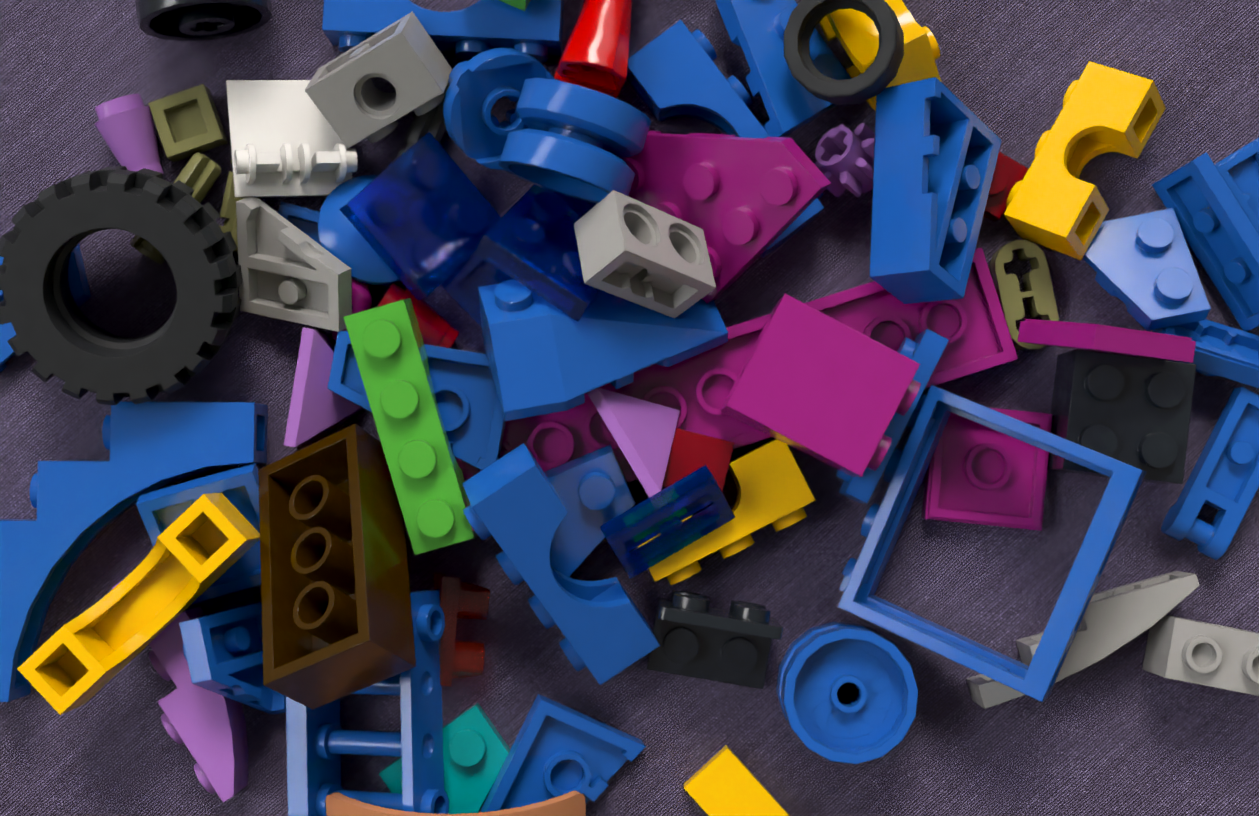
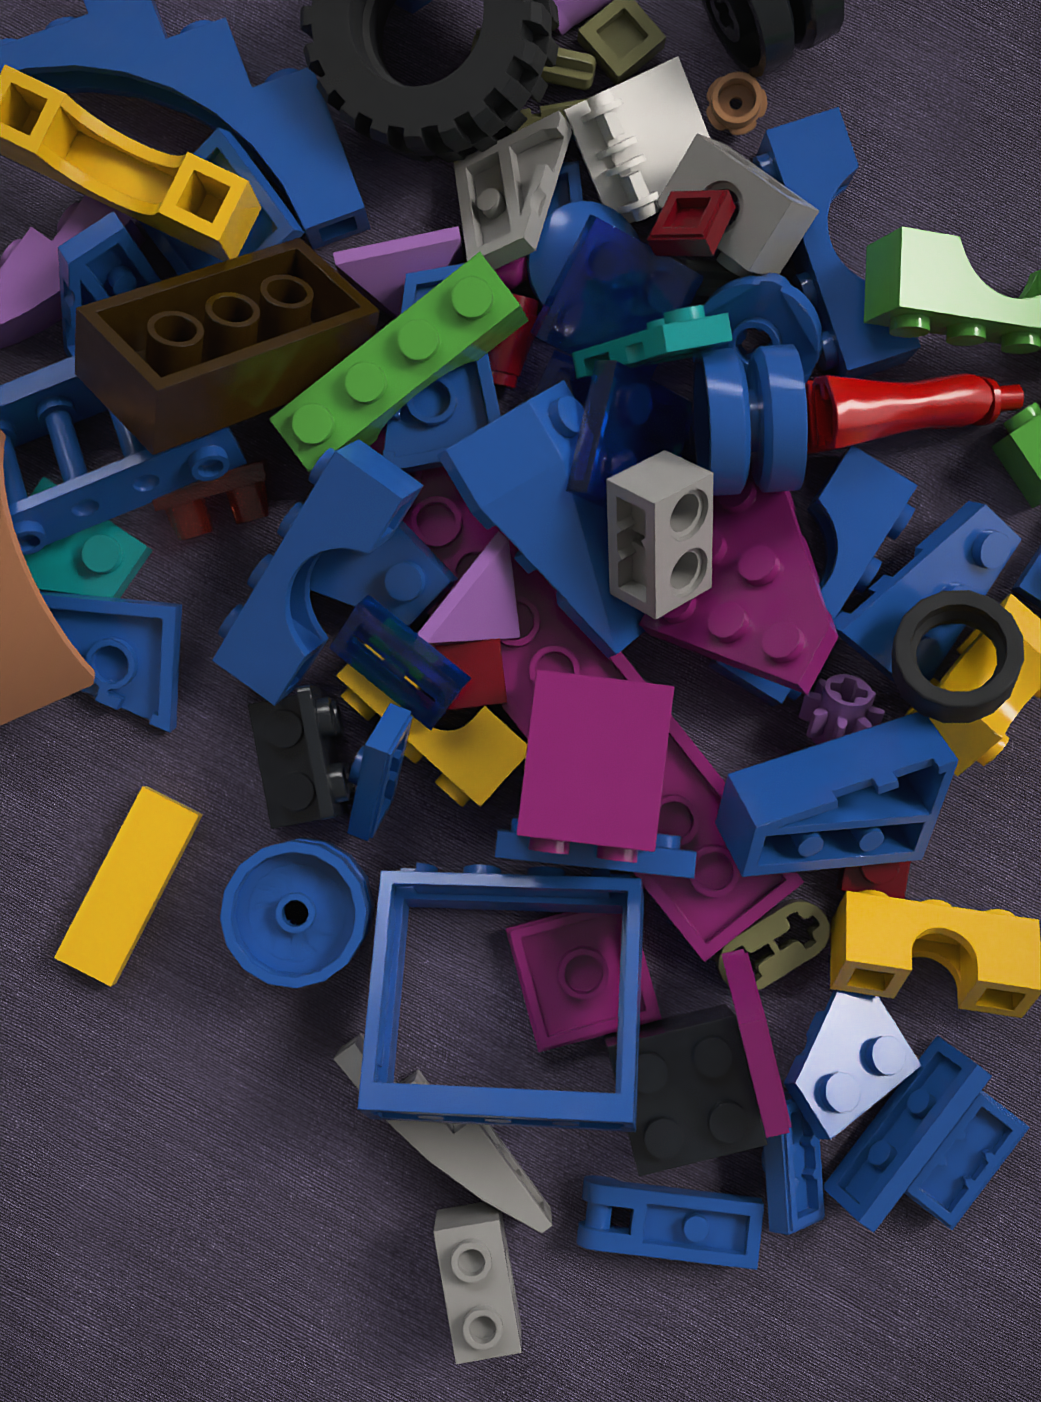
camera: 65 degrees right, 0 degrees up
(281, 30) = (735, 86): none -> medium nougat plate
(383, 125) = (691, 223): none -> dark red tile
(478, 186) = (665, 340): none -> teal wing
(751, 577) = (378, 771): none -> blue plate

